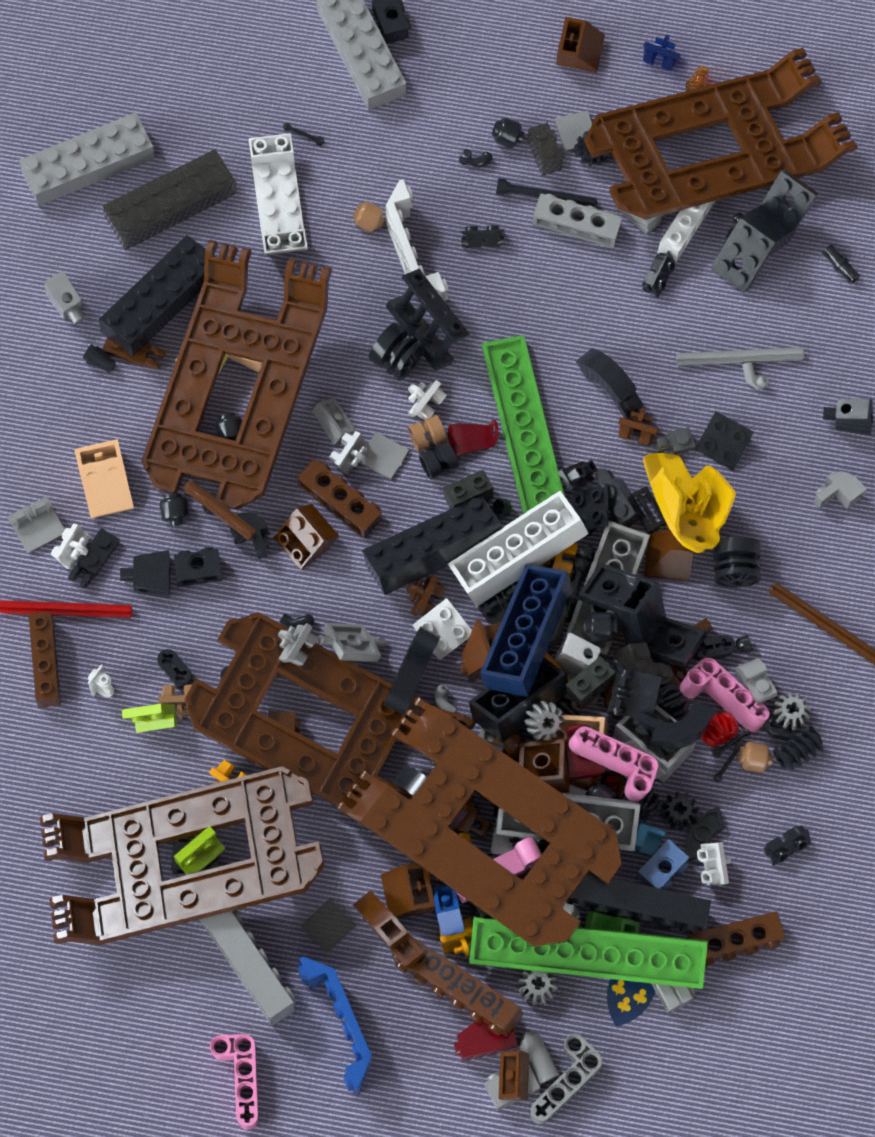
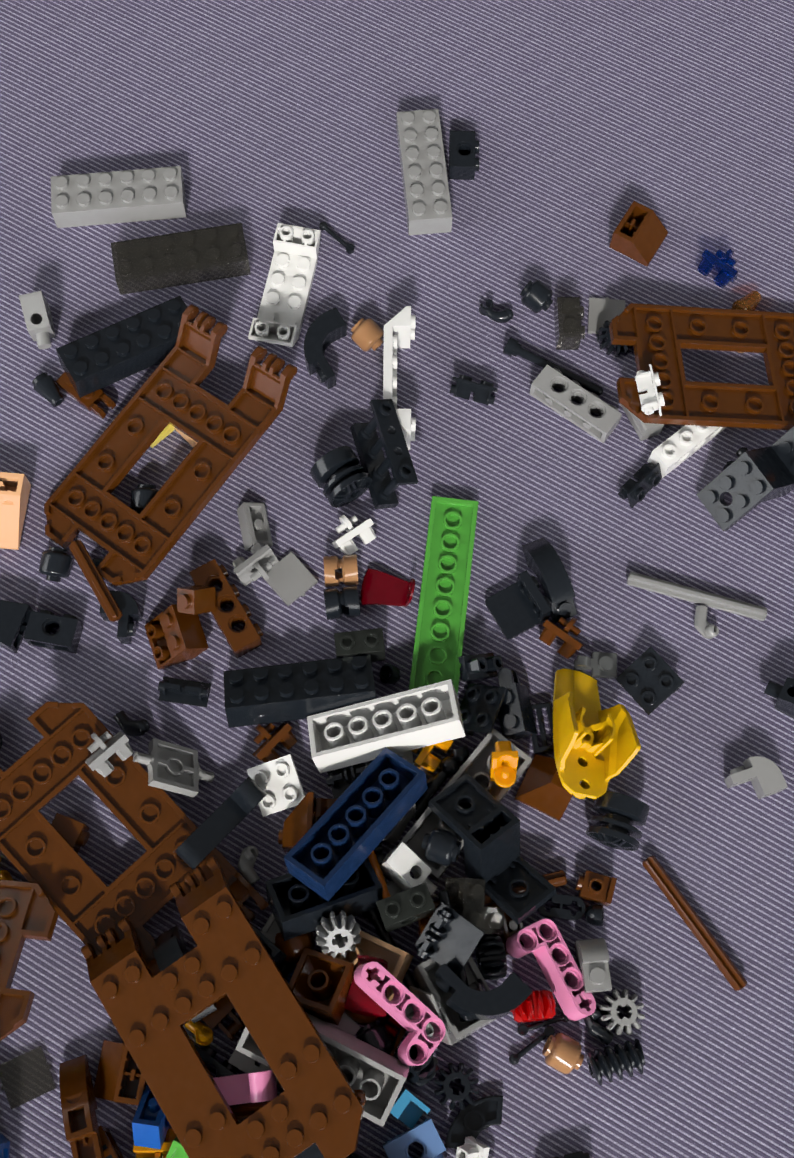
camera: 20 degrees right, 0 degrees up
(315, 497) = (196, 599): none -> reddish brown brick
(328, 225) = (319, 336): none -> black arch
(332, 580) = (184, 691): none -> black hinge
(592, 414) = (519, 606): none -> black bracket
(629, 544) = (503, 764): none -> light orange hips
(646, 197) = (652, 399): none -> white hinge
(737, 629) = (604, 895): none -> reddish brown brick

